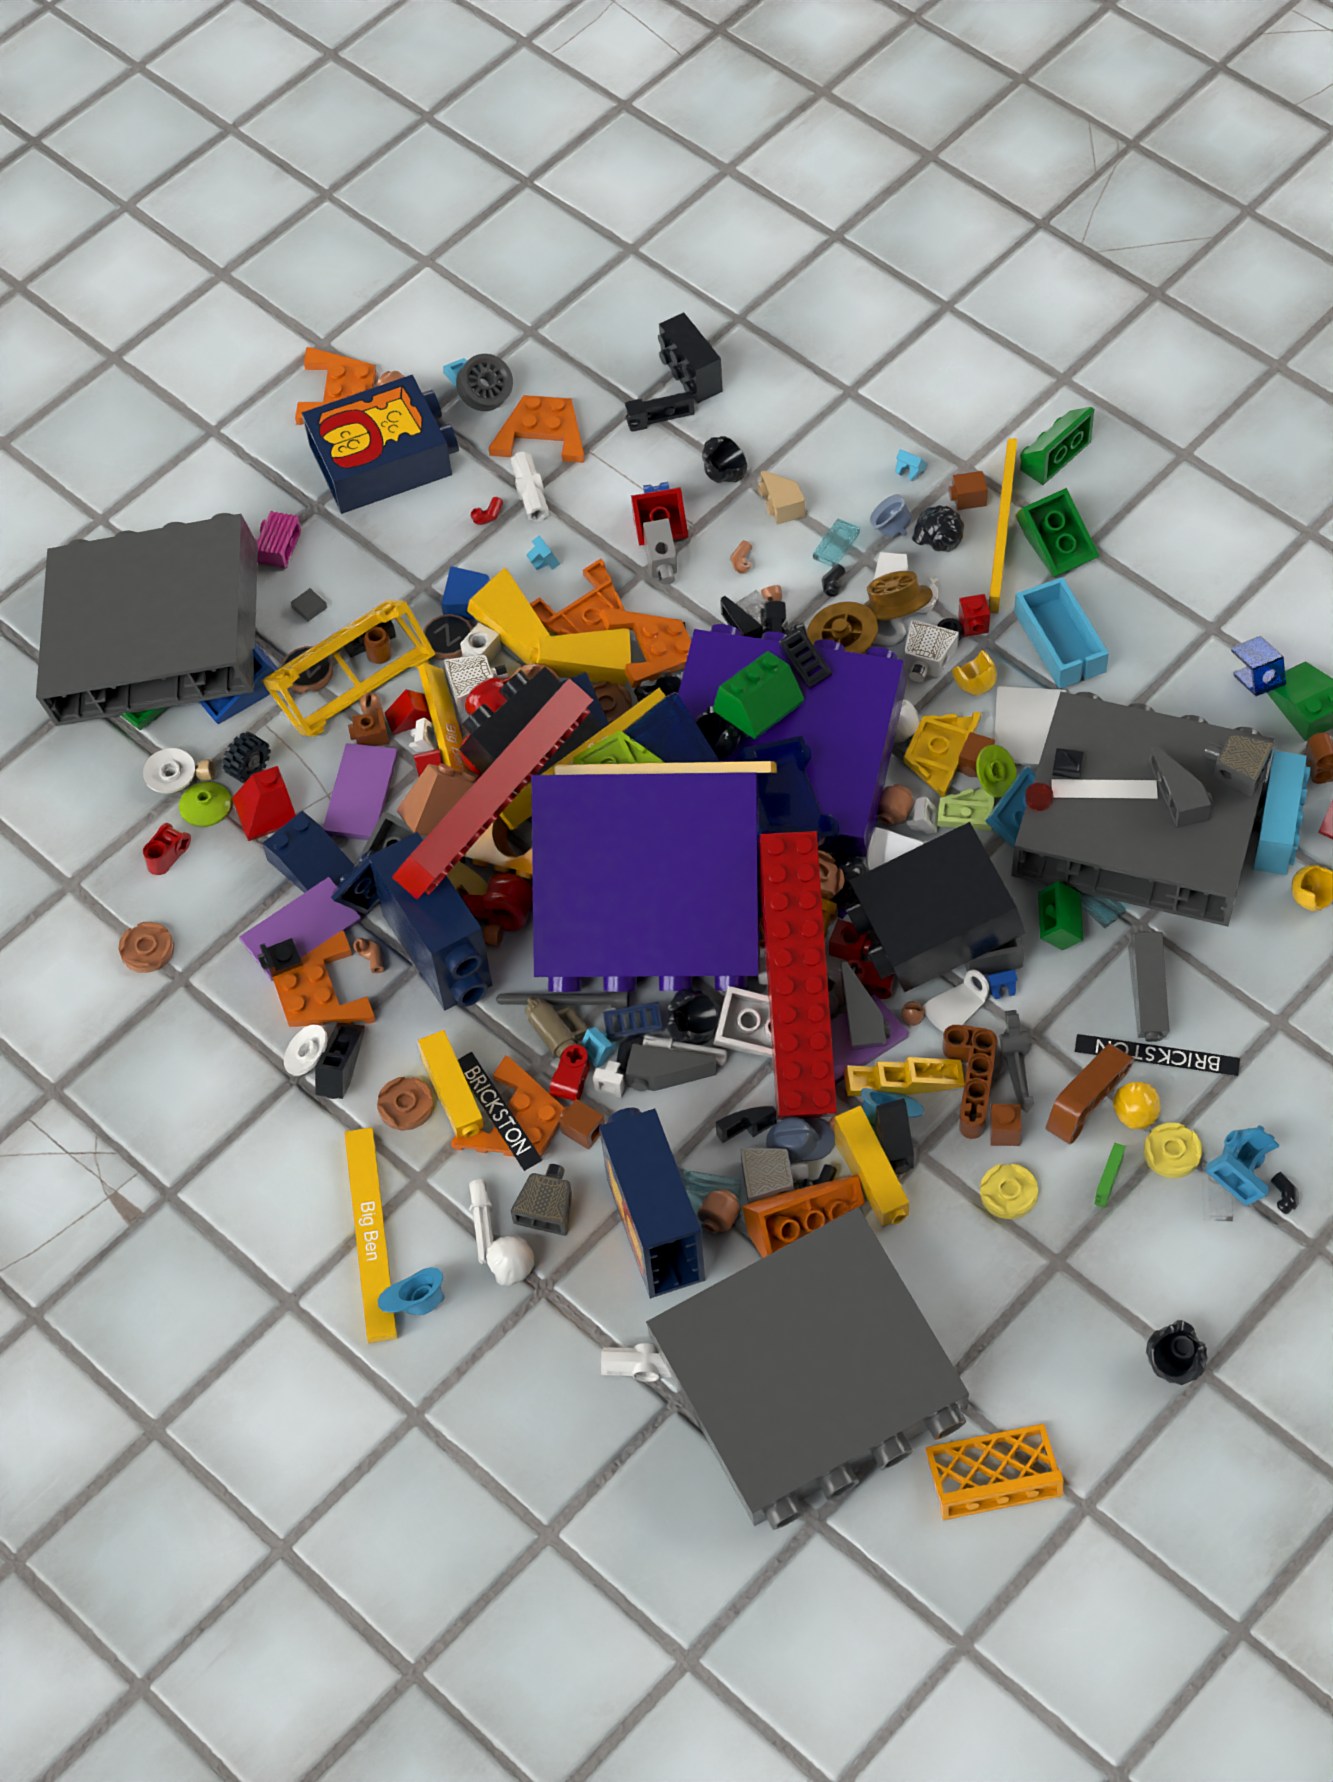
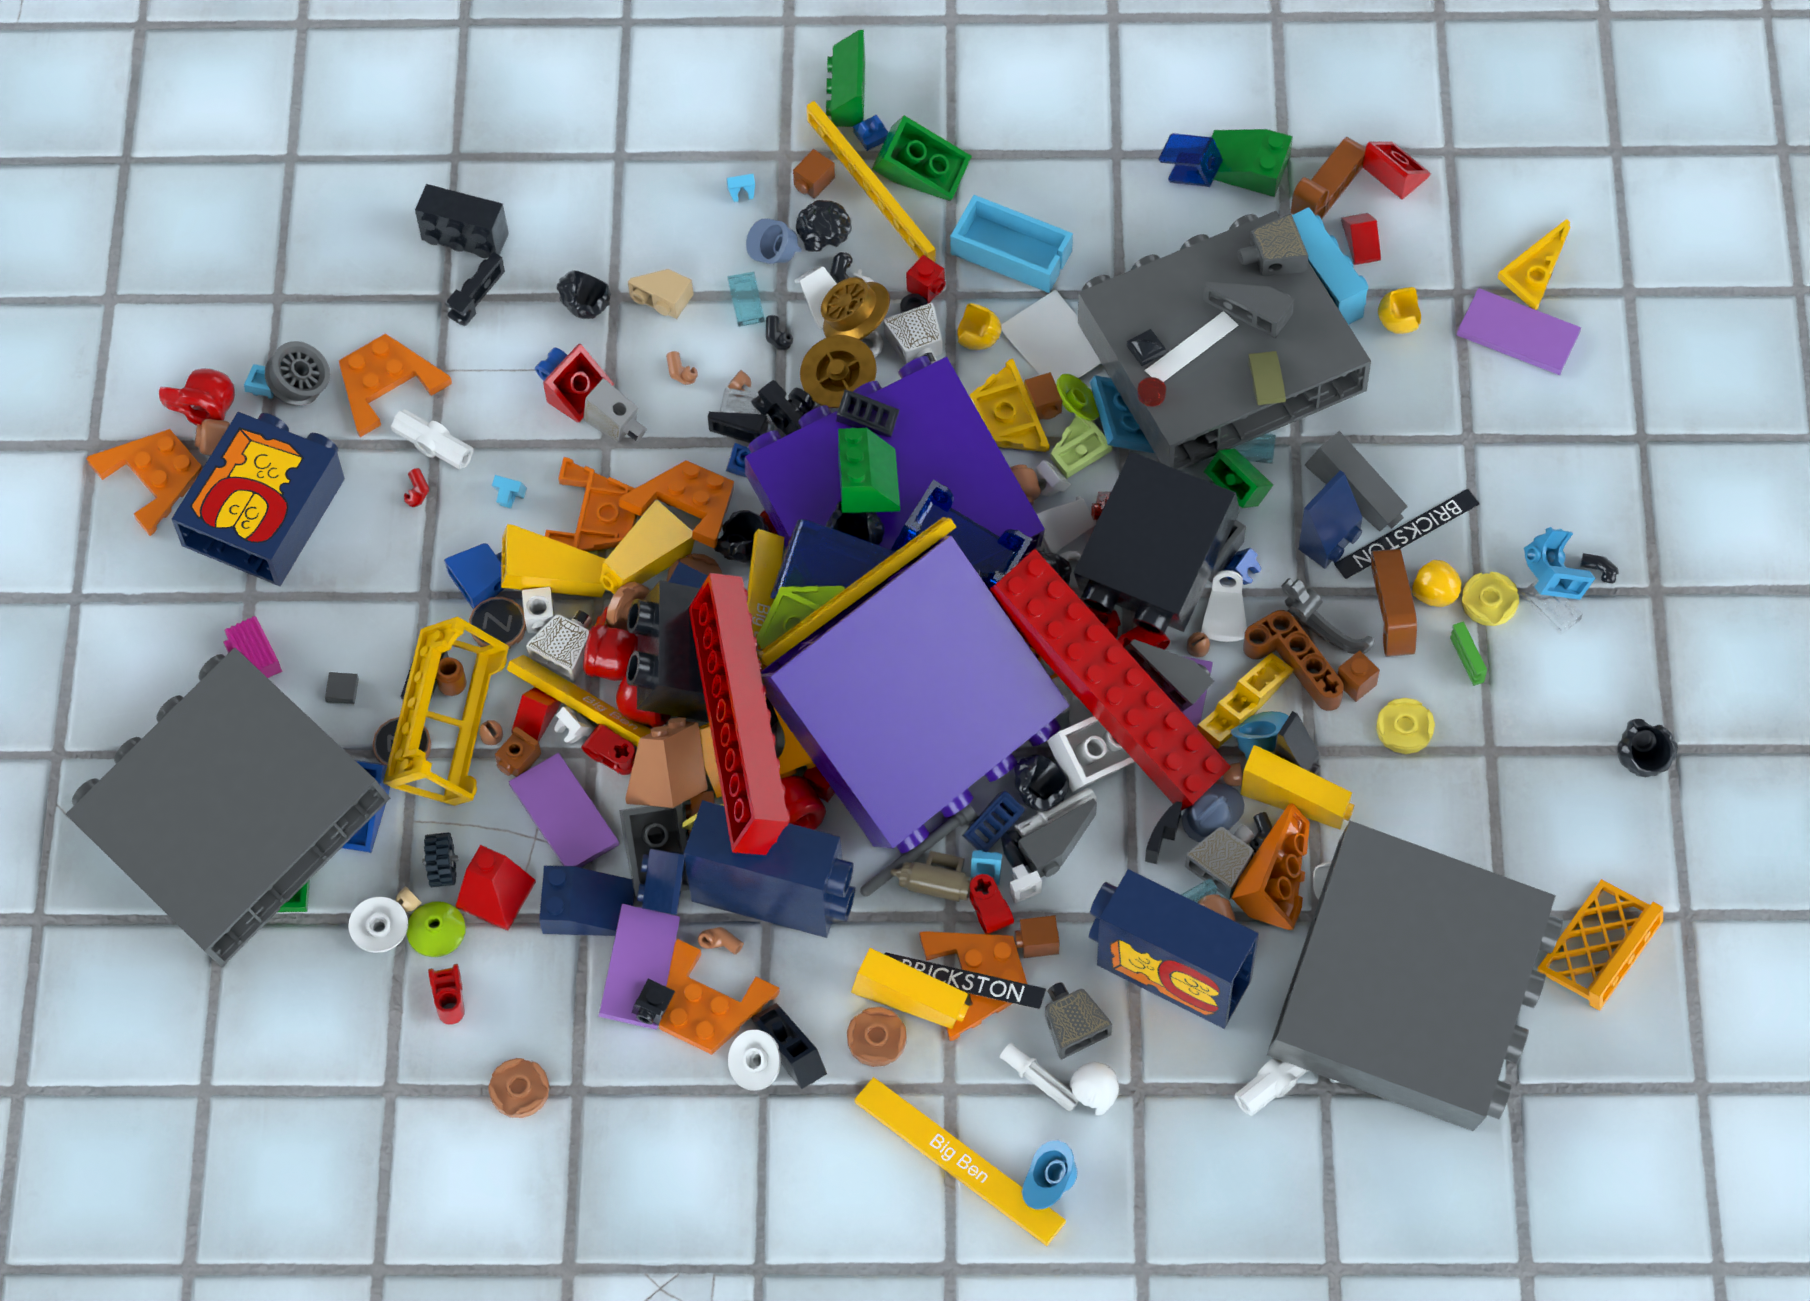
camera: 45 degrees left, 5 degrees up
(413, 355) = (205, 389): none -> red piece
(926, 563) = (839, 265): none -> black arm
(1041, 488) = (871, 132): none -> blue tile
(1094, 994) = (1330, 522): none -> dark blue slope
(1135, 848) = (1267, 378): none -> olive slope

